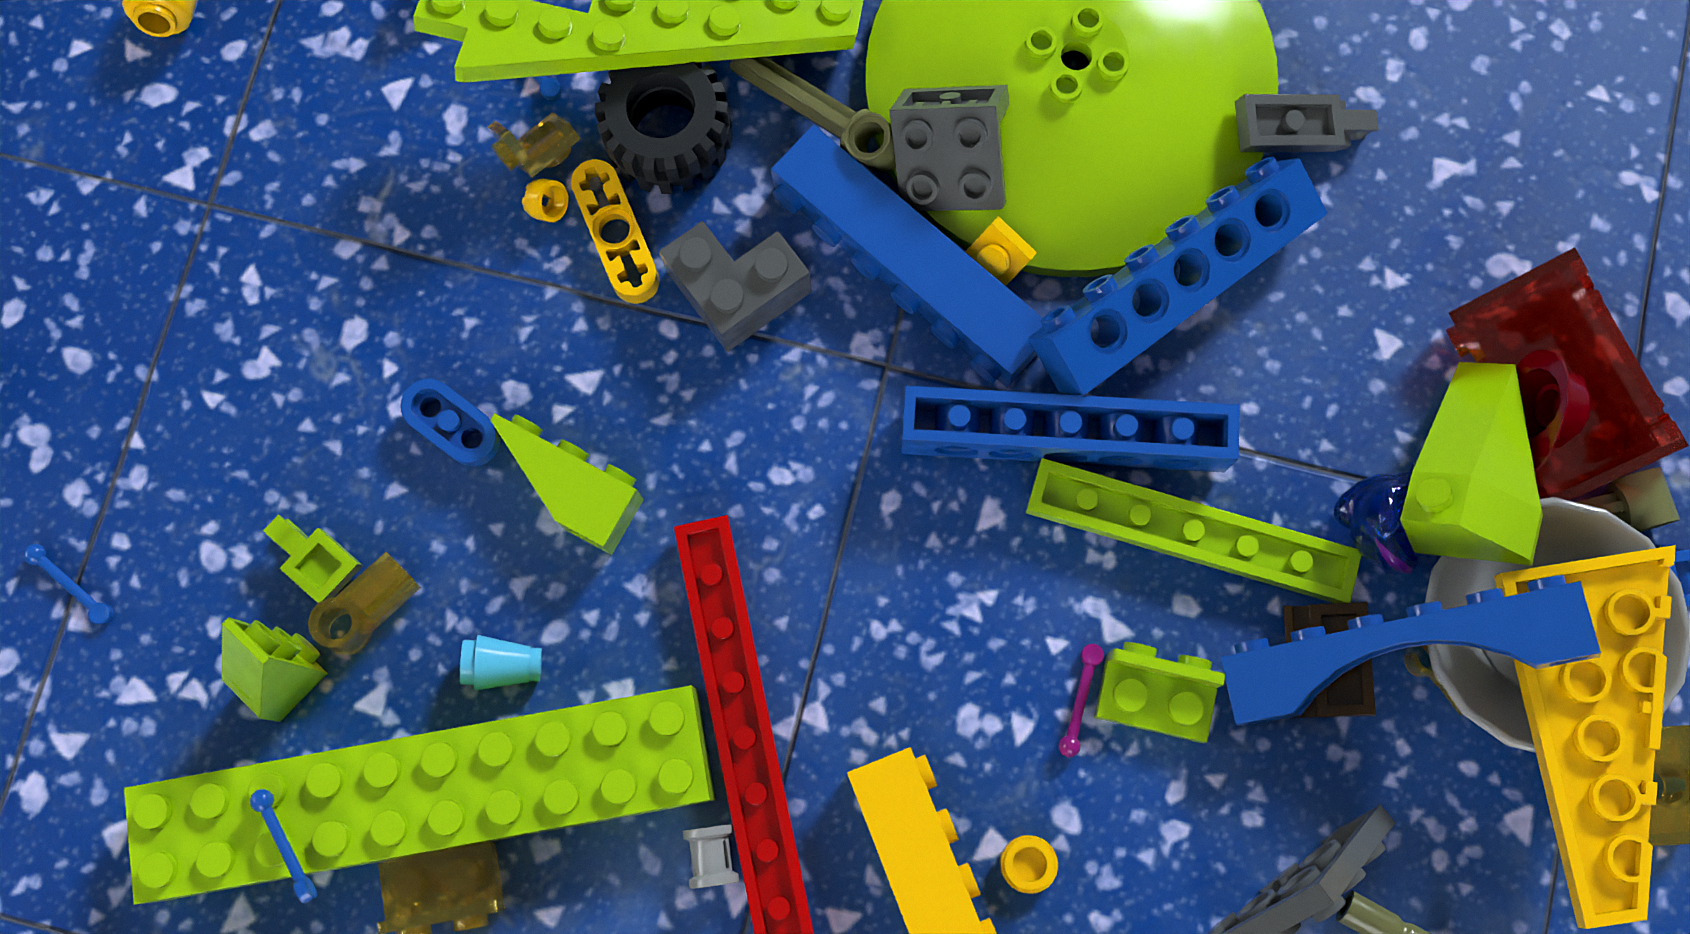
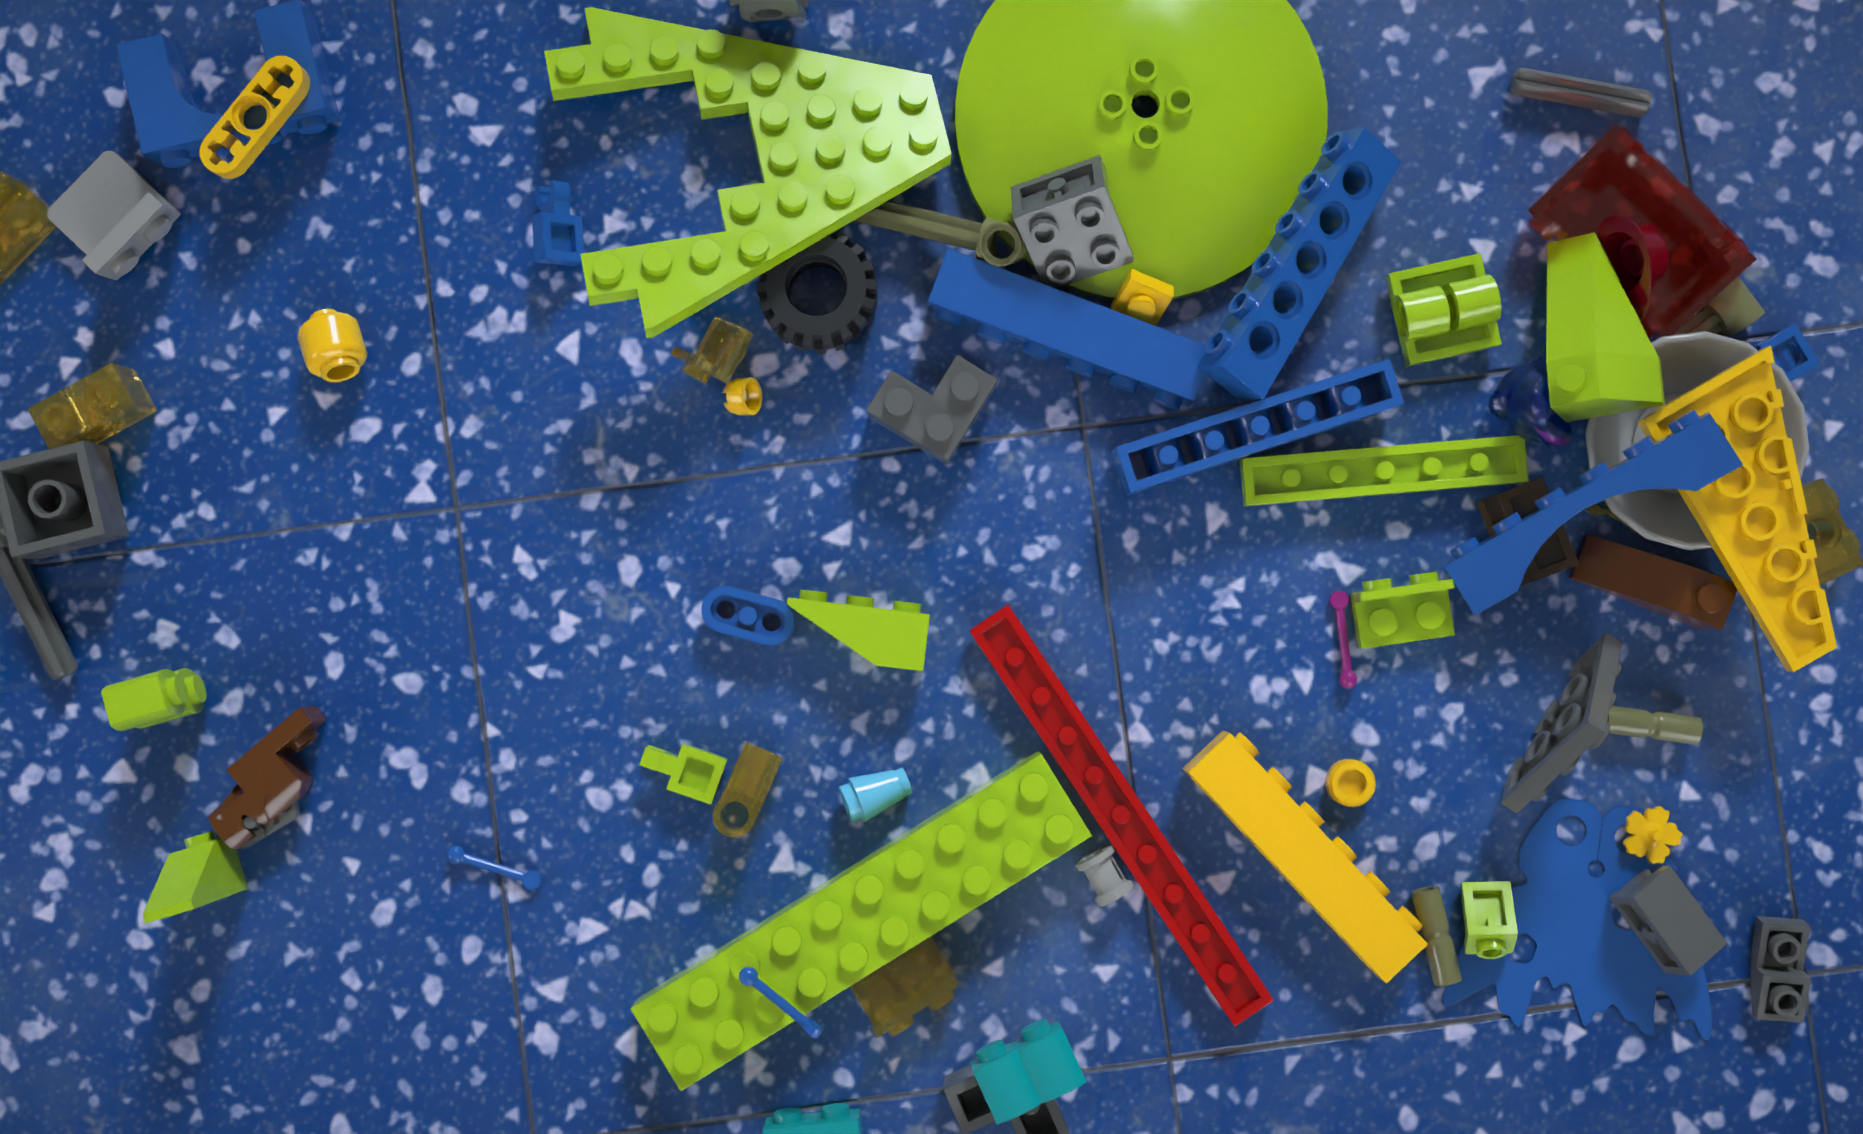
camera: 25 degrees left, 10 degrees up
(268, 667) = (699, 872): lime slope -> none
(615, 194) = (779, 384): yellow beam -> none
(1299, 123) = (1349, 88): dark grey hinge -> none
(1321, 387) = (1445, 309): none -> lime plate
(1457, 773) = (1655, 583): none -> reddish brown slope
(1548, 220) = (1580, 92): none -> dark grey axle

